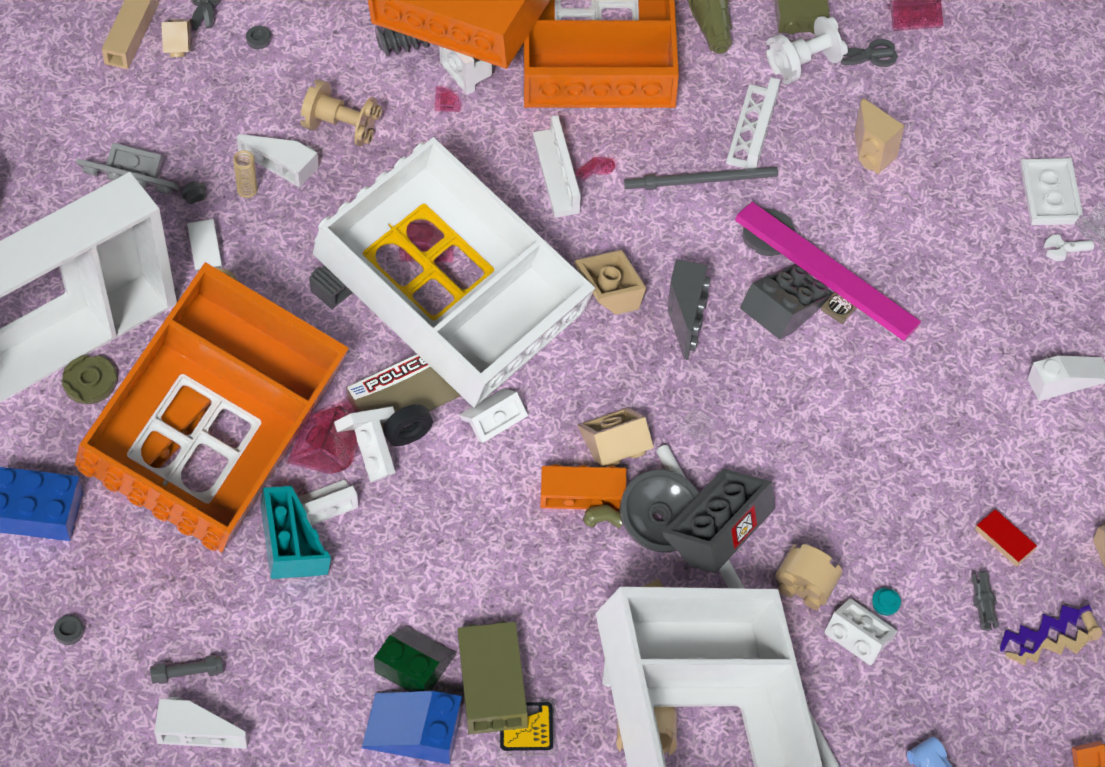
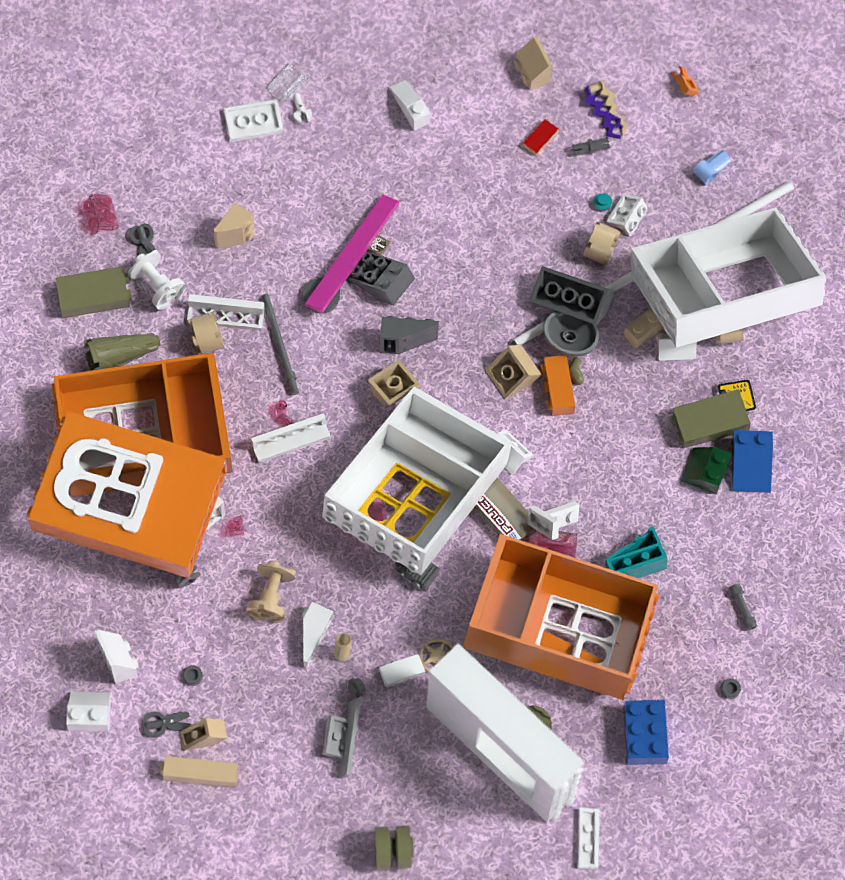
camera: 100 degrees left, 10 degrees up
(189, 724) = (784, 597): white slope -> none
(329, 502) = (599, 543): white panel -> none
(415, 414) = (535, 496): black tyre -> none
(721, 92) = (206, 333): none -> tan brick

